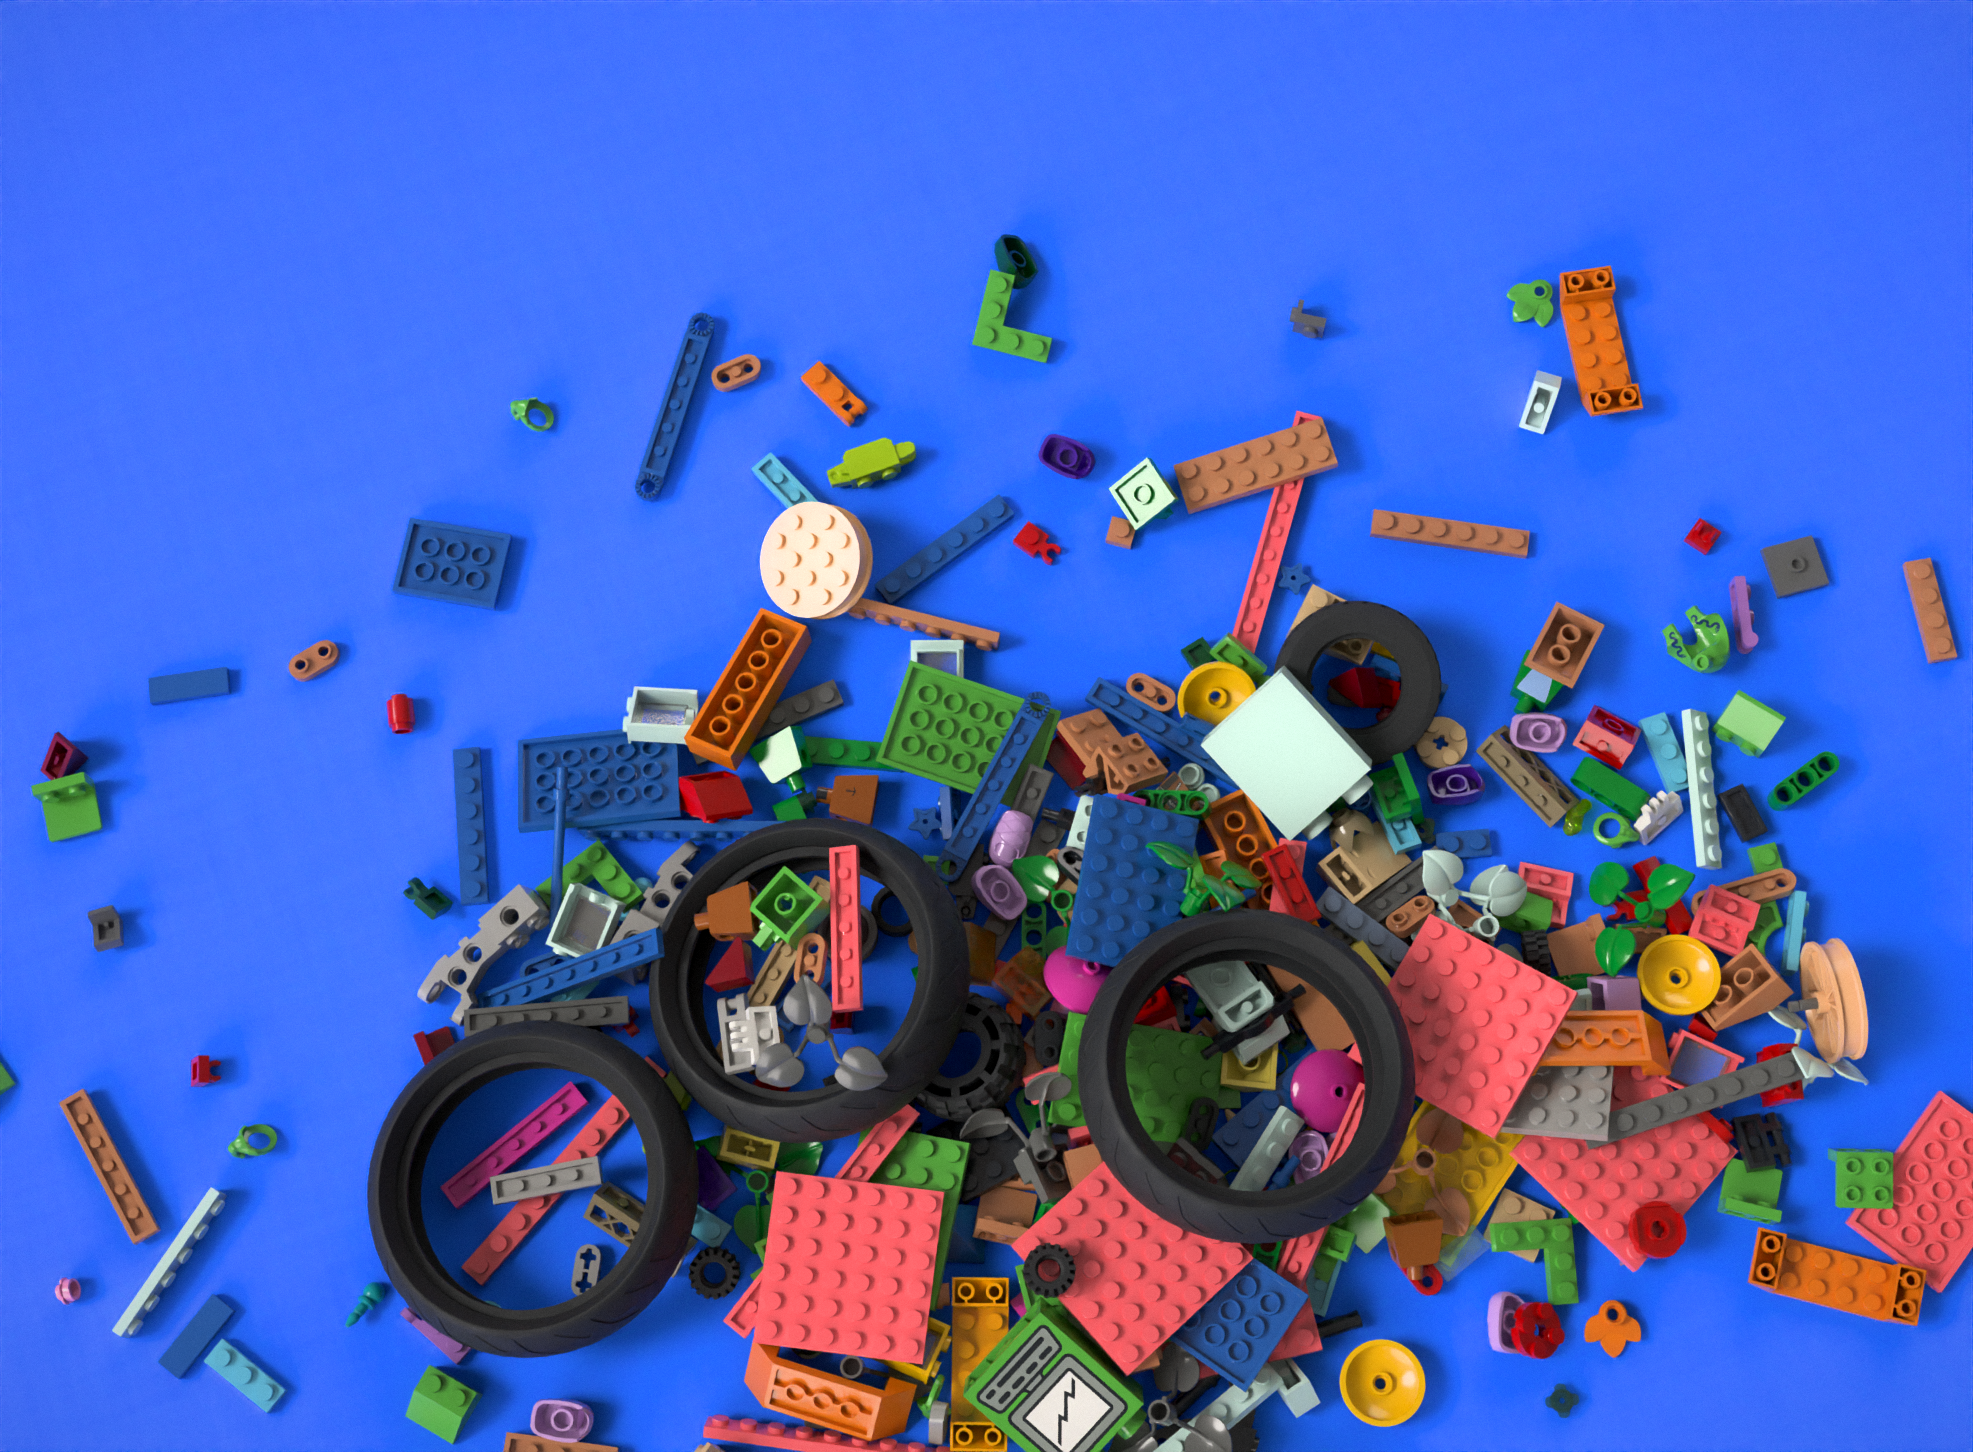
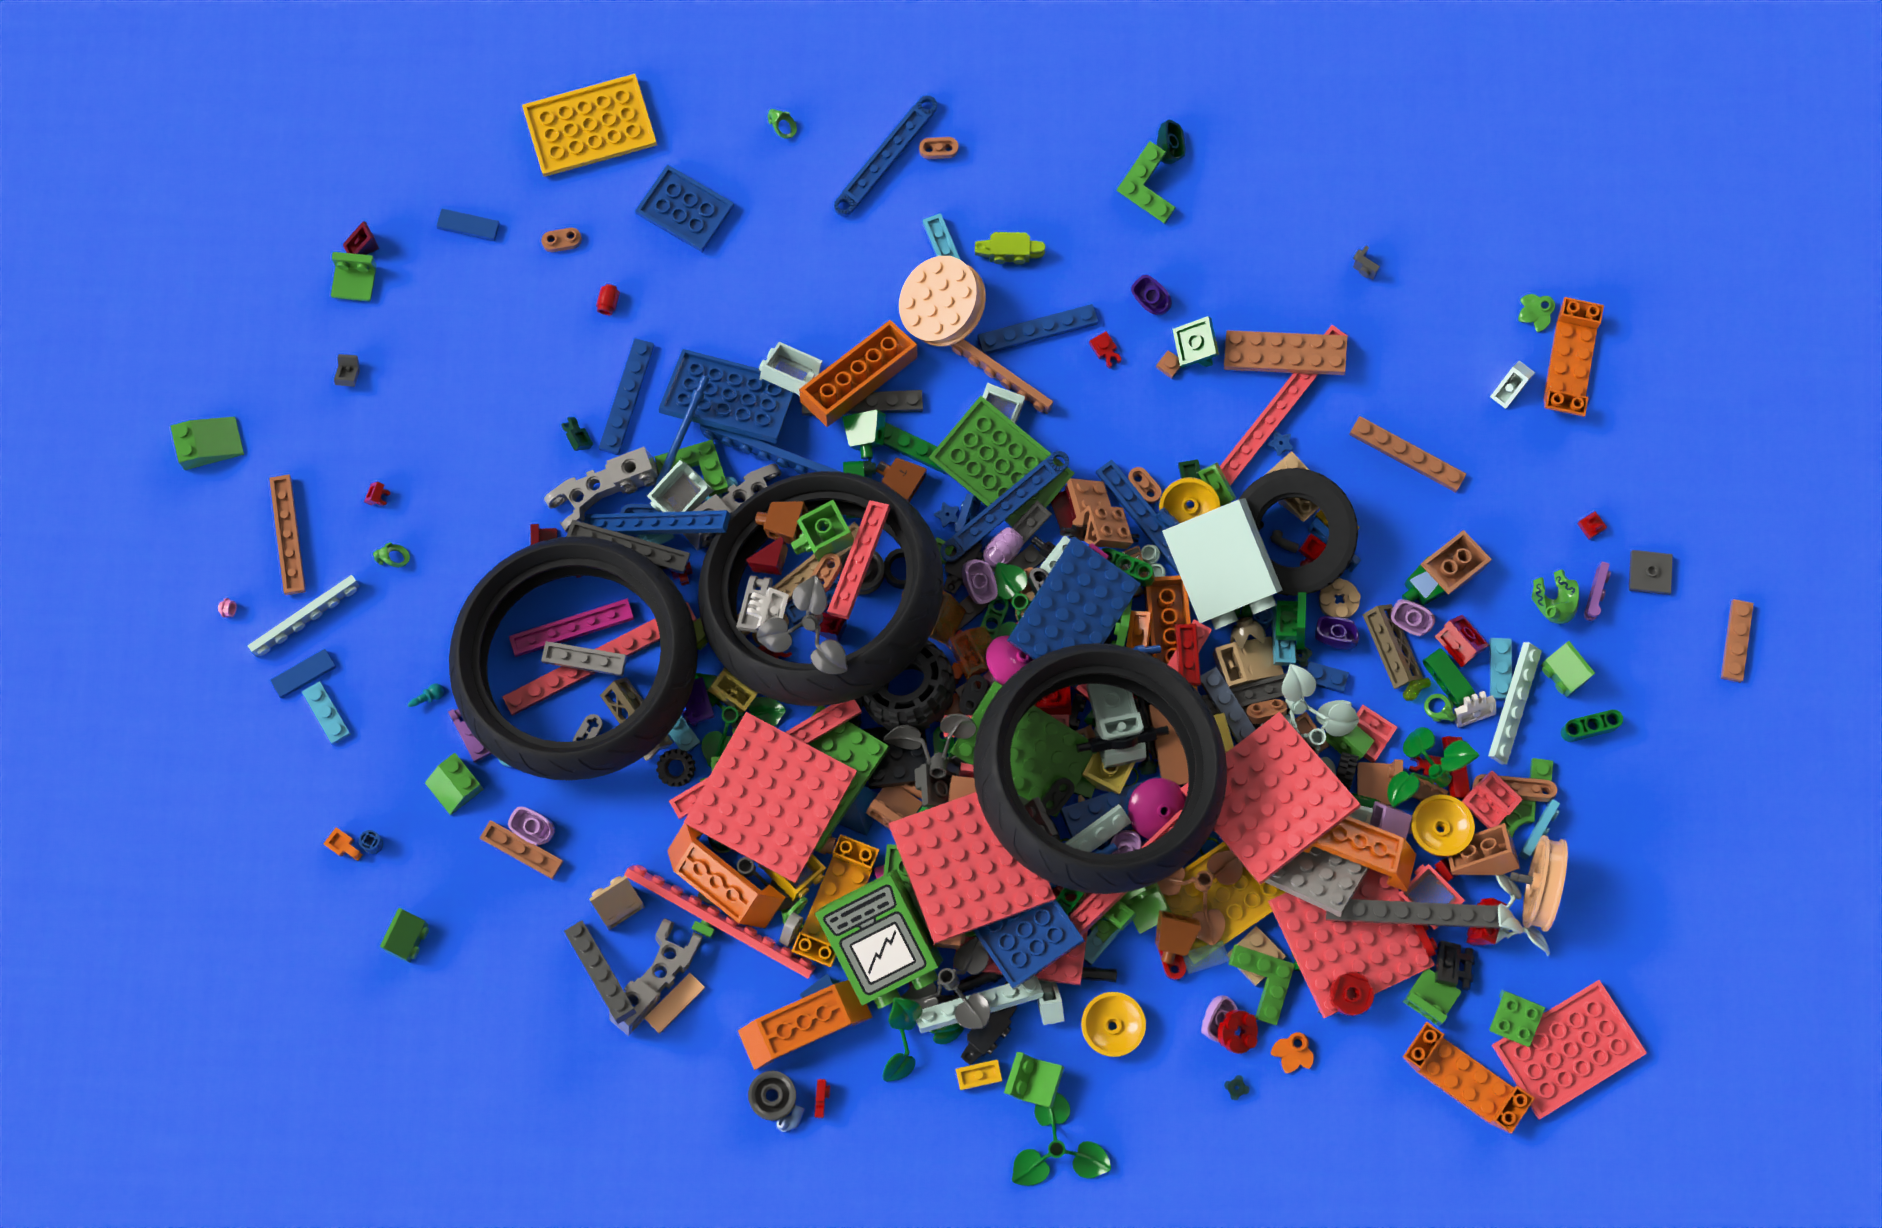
camera: 15 degrees right, 0 degrees up
(294, 505) = (589, 125): none -> yellow plate
(714, 796) = (804, 439): red slope -> none
(833, 393) = (1002, 188): orange plate -> none
(1054, 1253) = (907, 836): black tyre -> none
(1198, 897) = (1134, 636): green plant -> none
(1359, 686) = (1296, 536): dark red slope -> none
(1742, 813) = (1538, 731): black plate -> none

